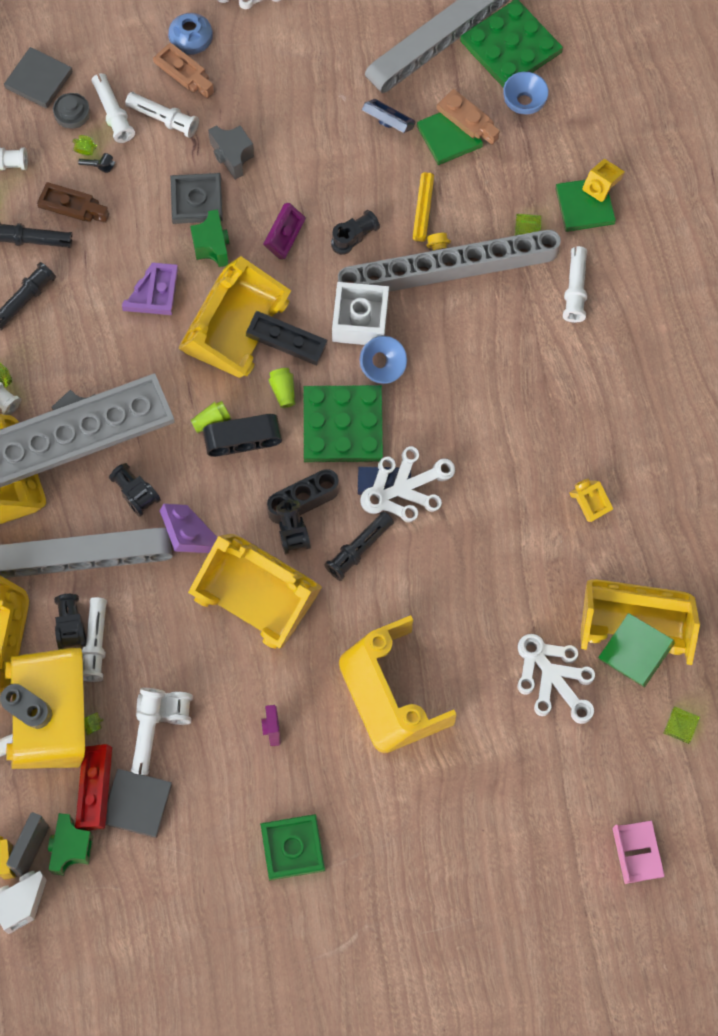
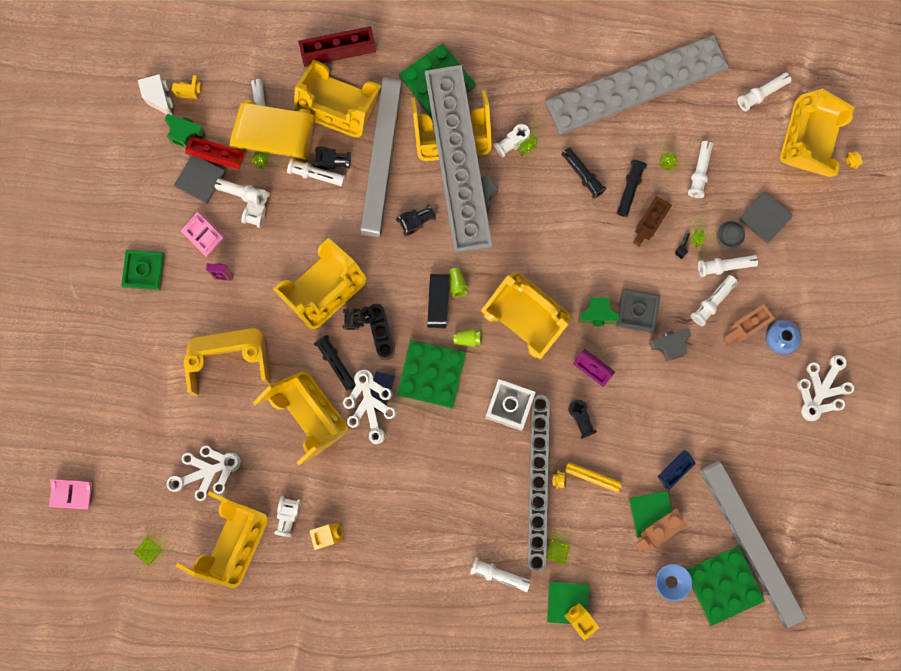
camera: 105 degrees right, 10 degrees up
(24, 705) = (271, 114): dark grey plate -> none
(28, 844) = (185, 103): dark grey tile -> none
(154, 291) = (566, 265): medium lavender wing -> none
(187, 529) = (375, 248): medium lavender wing -> none
(211, 786) = (209, 240): none -> bright pink piece
(286, 338) = (506, 348): black plate -> none
(395, 359) = (461, 412): medium blue piece -> none
(439, 554) = (310, 409): none -> yellow windscreen
(580, 554) = (287, 516): none -> white connector
(636, 650) = (205, 534): tile -> none

